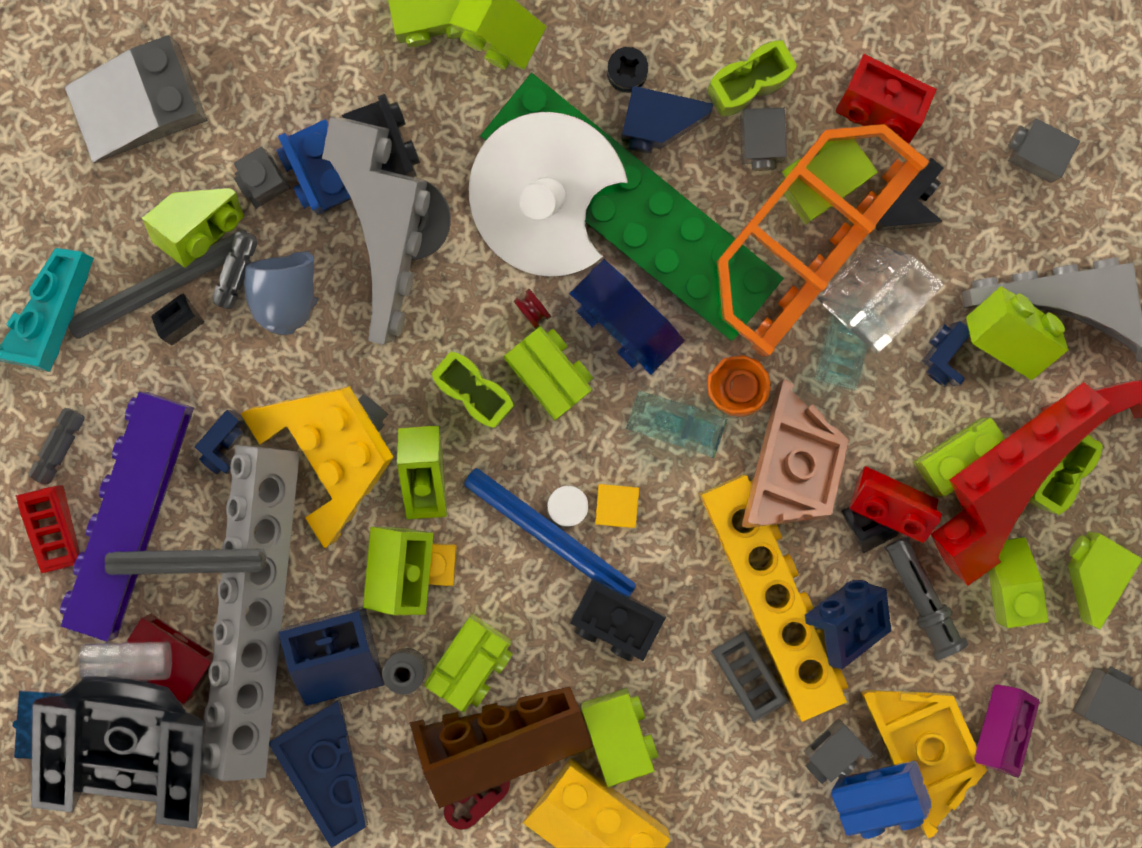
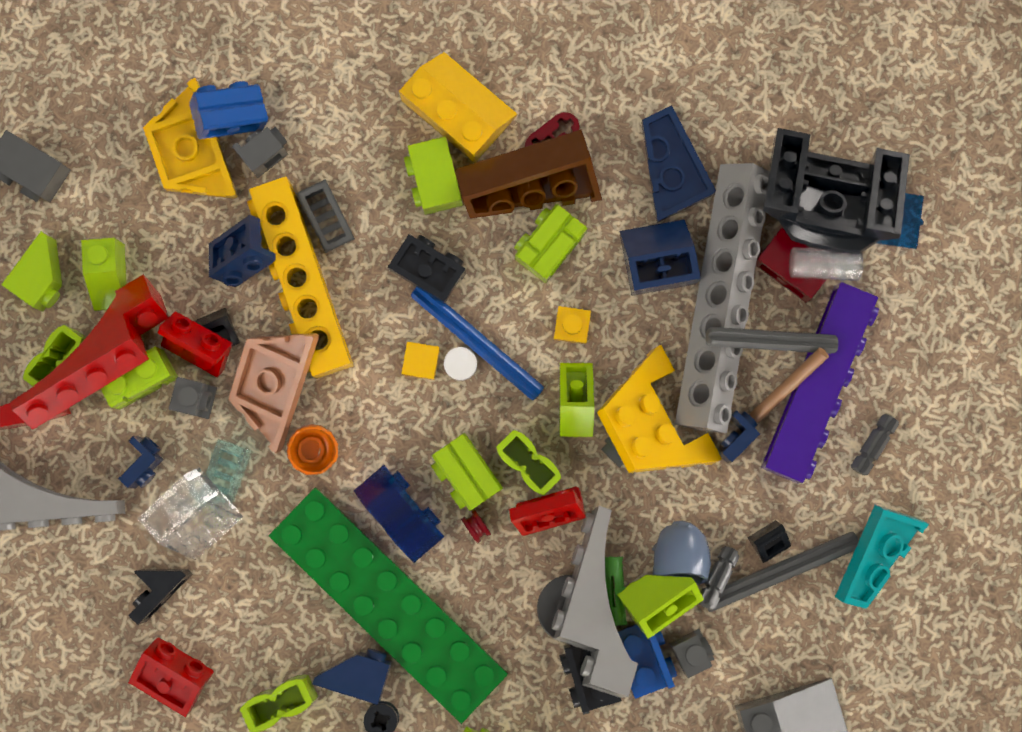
camera: 170 degrees left, 5 degrees down
(60, 509) = (896, 375): red slope -> none
(162, 510) = (789, 384): none -> medium nougat bar
(192, 222) = (751, 620): lime slope -> none
(302, 235) = (659, 600): none -> lime slope
(360, 271) = (614, 568): none -> bright green pin
(398, 570) = (601, 321): lime brick -> none
(411, 660) = (601, 250): dark grey brick -> none
(445, 333) = (548, 511): none -> red bracket
(535, 190) = (465, 625): white piece -> none
(677, 423) = (366, 422): clear light blue slope -> none
(763, 137) = (274, 653): dark grey brick -> none
(838, 165) = (225, 615): lime brick -> none
(845, 239) = (214, 563): orange plate -> none
(891, 437) = (192, 398): none -> dark grey brick
(932, 614) = (174, 252): dark grey pin -> none
(1007, 730) = (124, 158): magenta slope -> none
(1017, 332) = (82, 474): lime brick -> none
(1042, 150) = (46, 624): dark grey brick -> none

